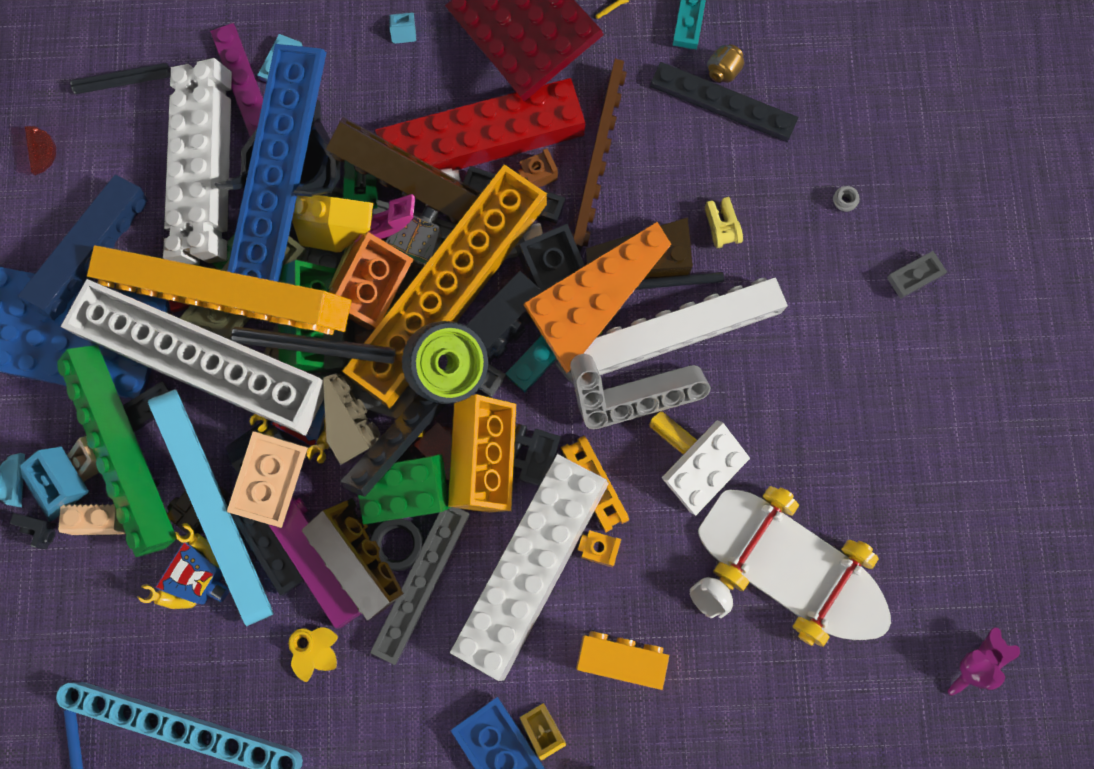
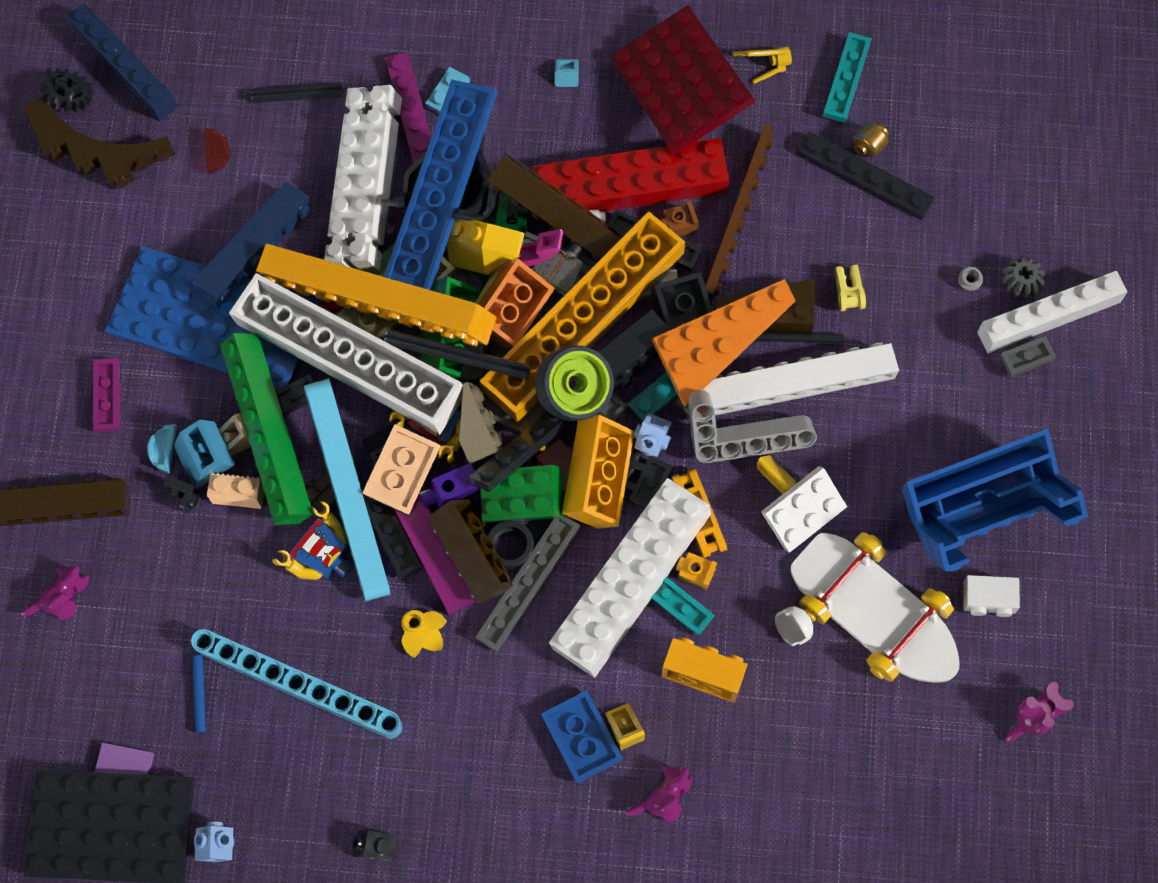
camera: 10 degrees right, 5 degrees down
(330, 484) = (455, 482): none -> dark purple torso
(536, 405) = (652, 435): none -> light blue brick
(589, 589) = (682, 606): none -> teal plate
(901, 191) = (1030, 277): none -> dark grey gear
(902, 429) = (989, 494): none -> blue wedge
(914, 536) = (991, 595): none -> white brick
(936, 224) = (1052, 312): none -> white brick

